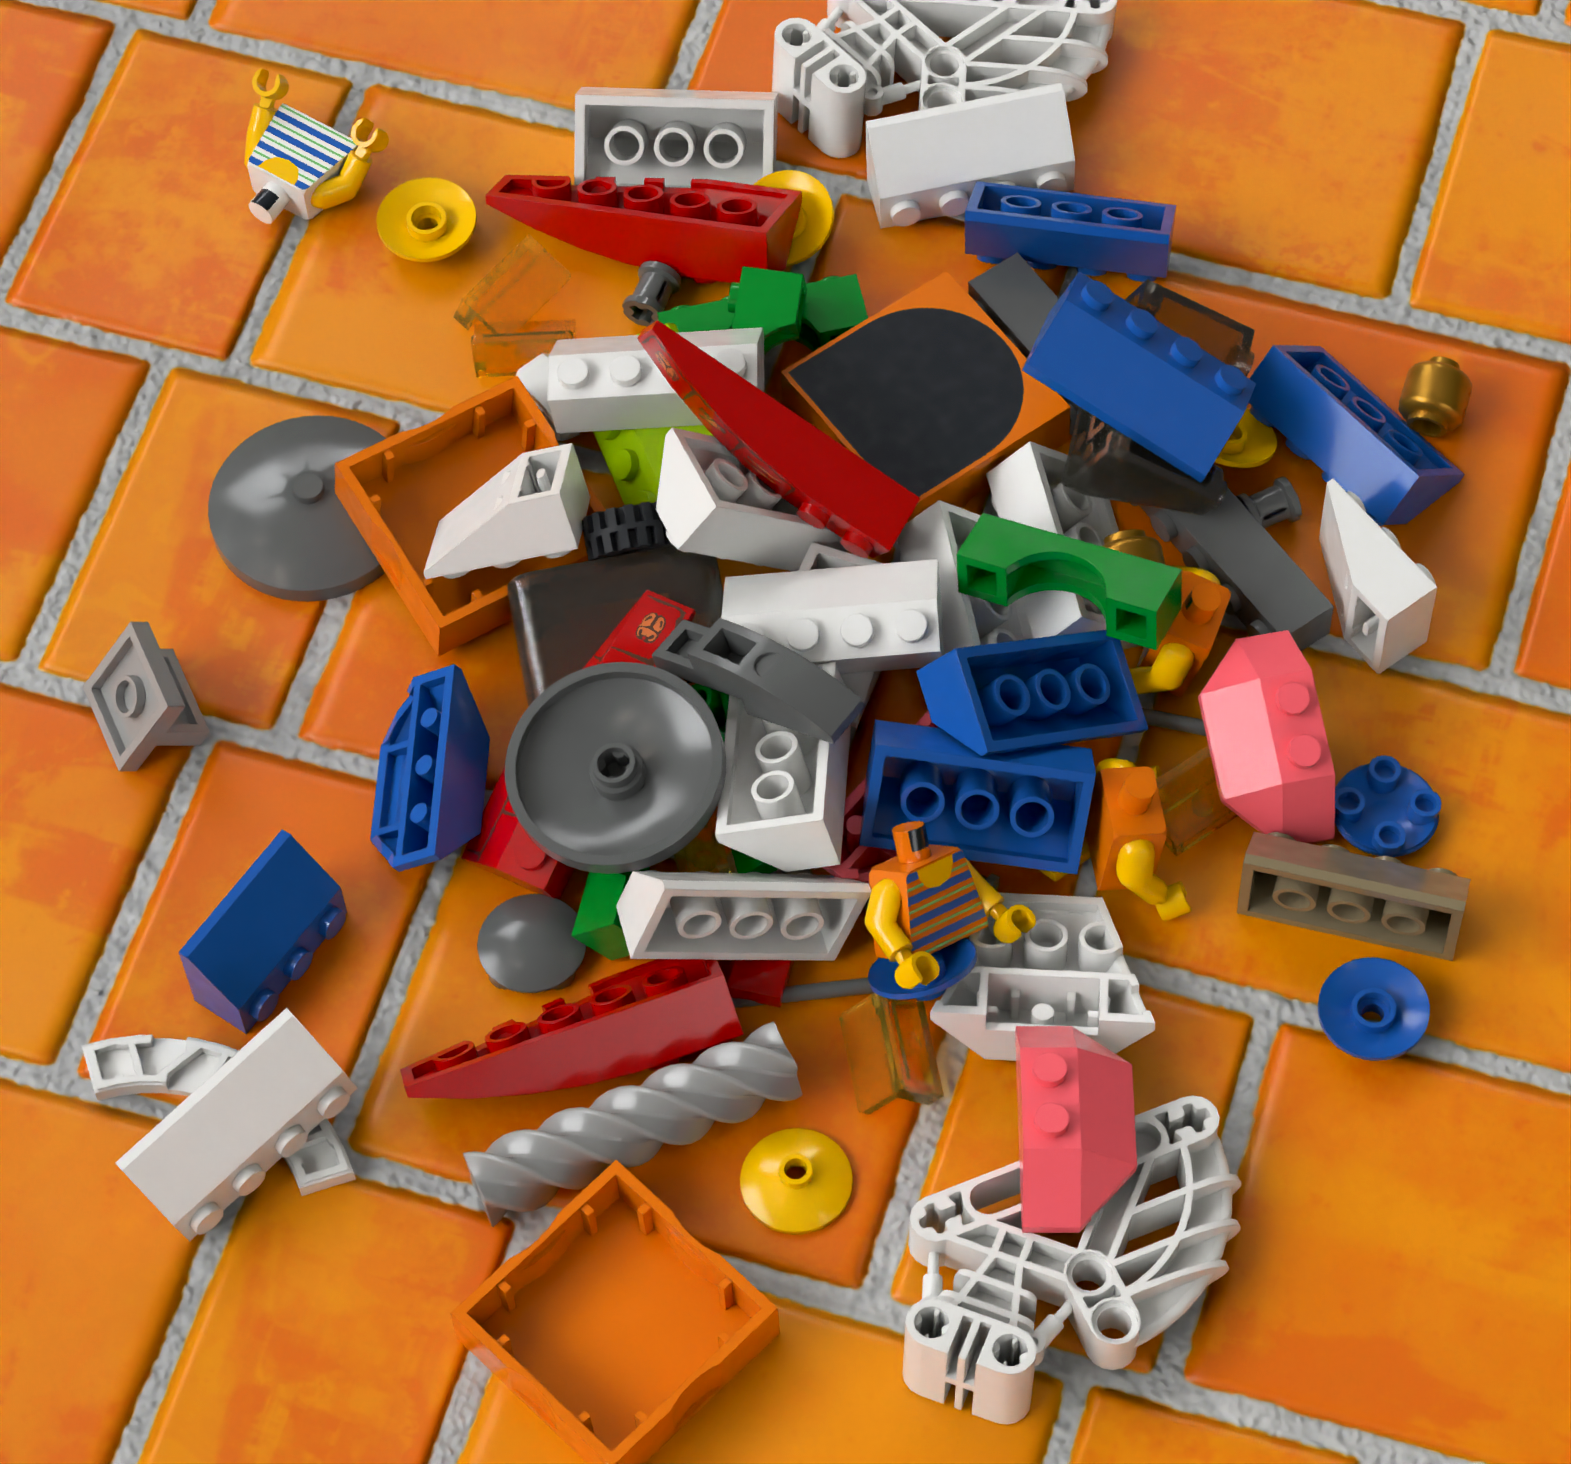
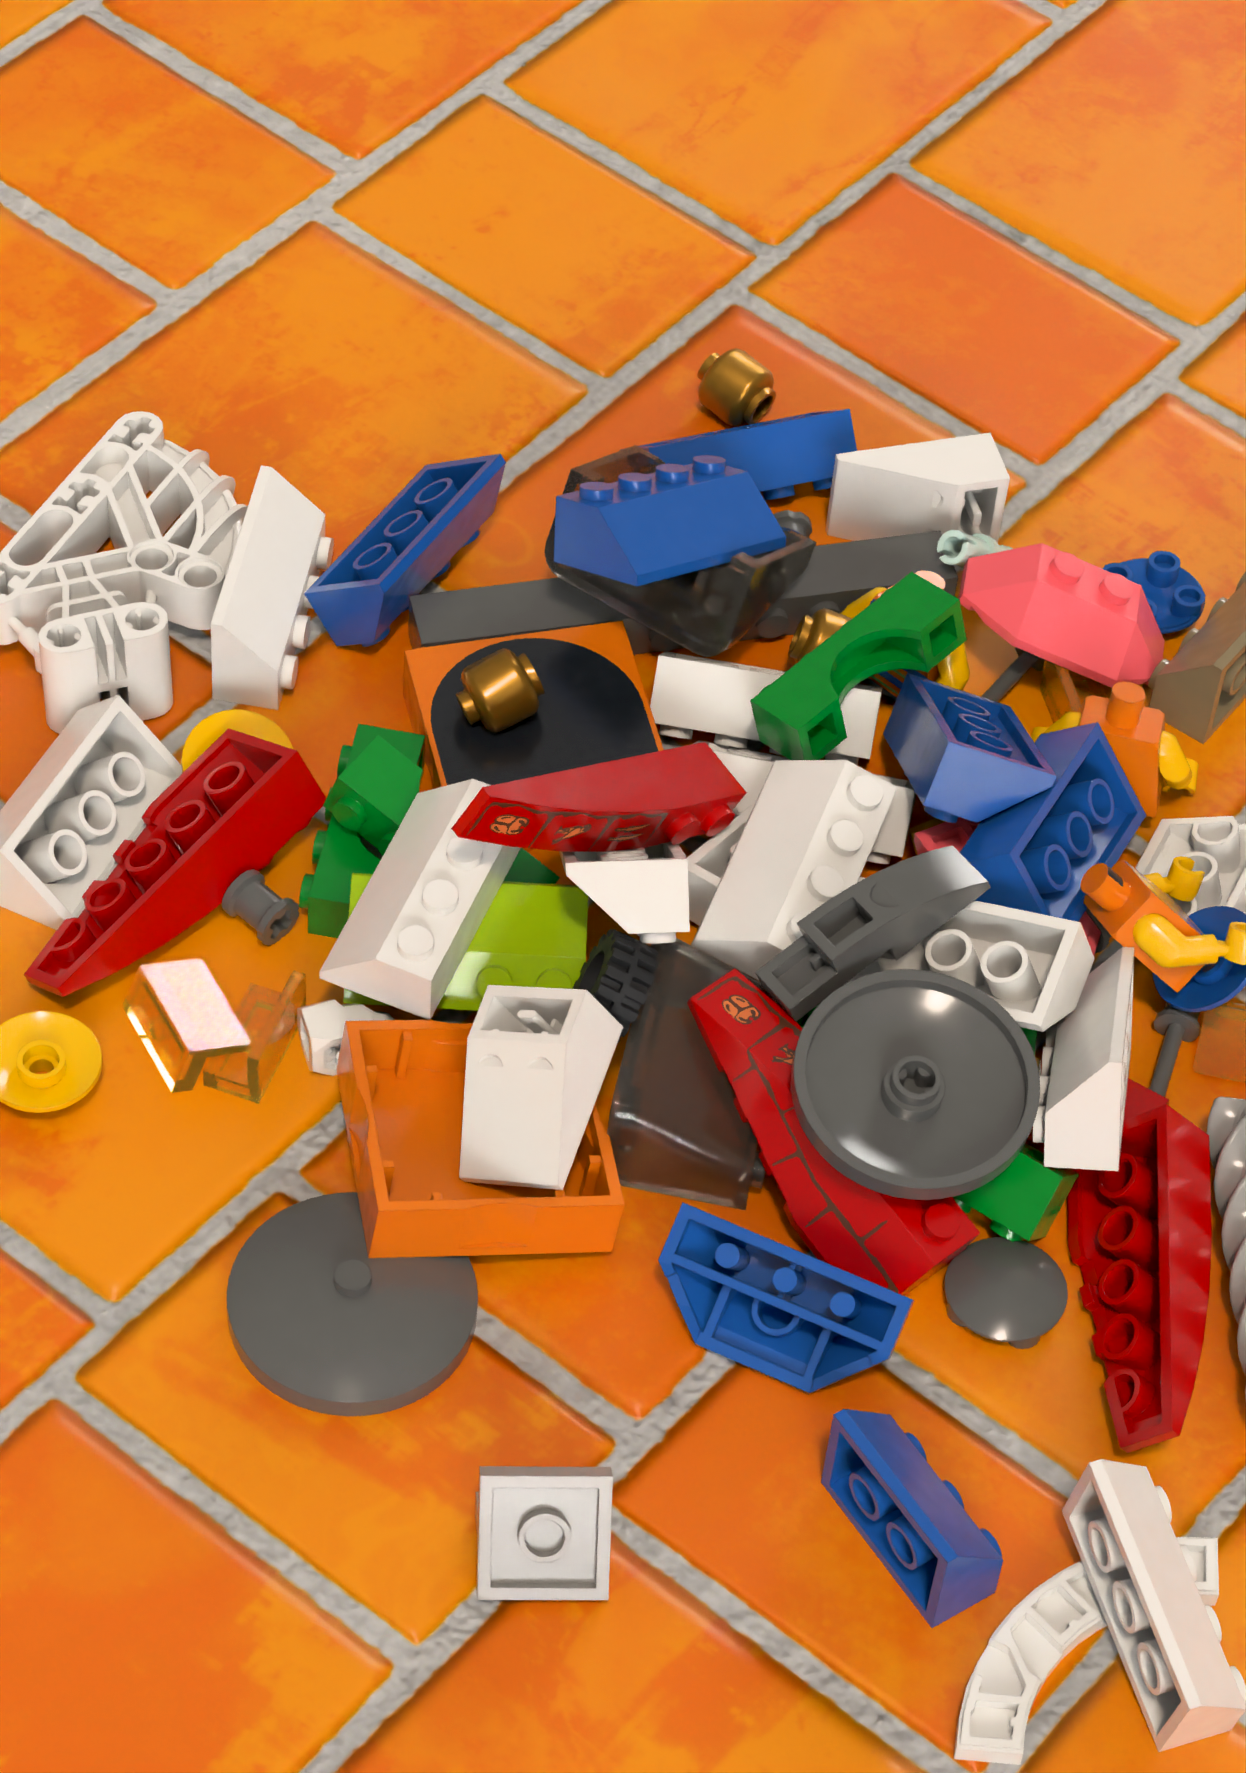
camera: 75 degrees left, 10 degrees down
(917, 343) = (500, 690): none -> pearl gold head
(1325, 647) = (963, 546): none -> light aqua pin

